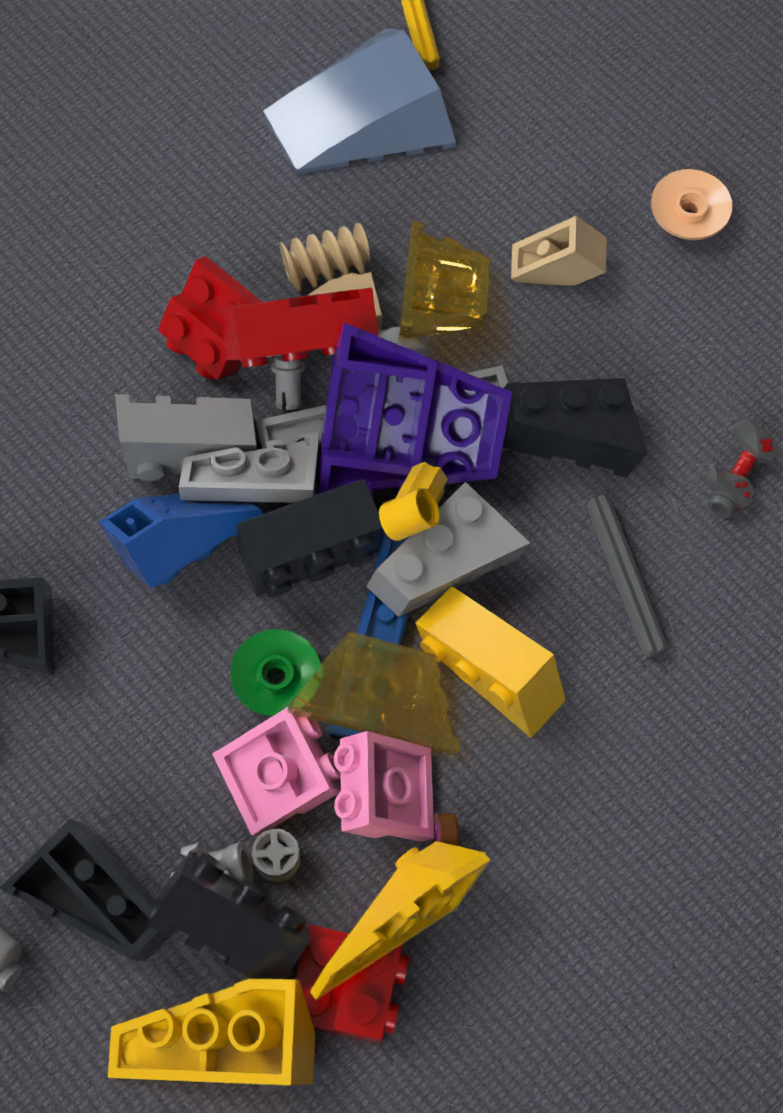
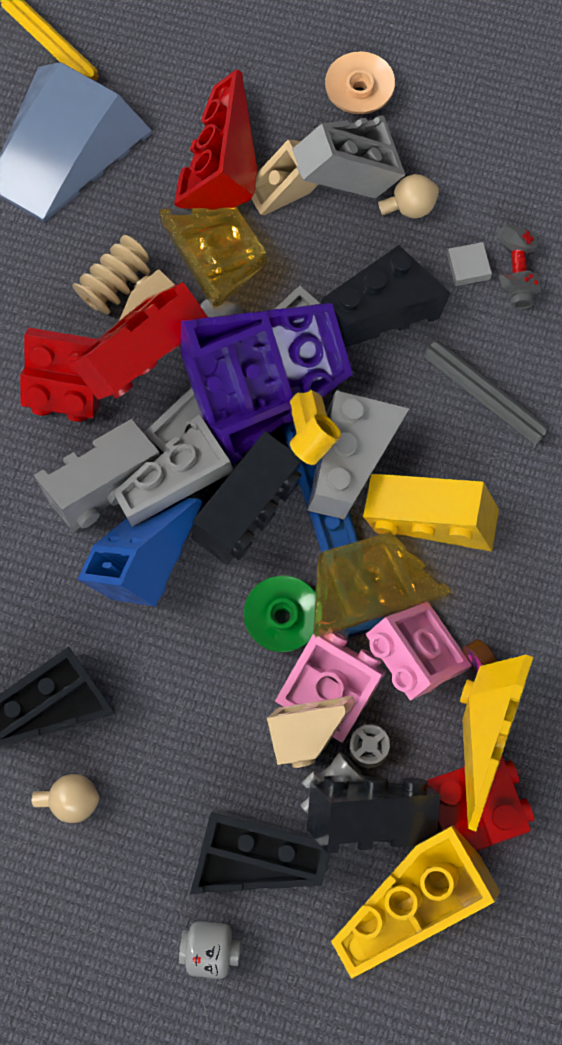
camera: 25 degrees left, 5 degrees up
(221, 798) = (305, 729): none -> tan slope
(288, 382) = (150, 391): light grey pin -> none
(511, 200) = (224, 153): none -> red wedge
(629, 266) = (350, 157): none -> light grey wedge
(673, 343) = (413, 197): none -> tan piece
(691, 440) = (469, 264): none -> light grey tile

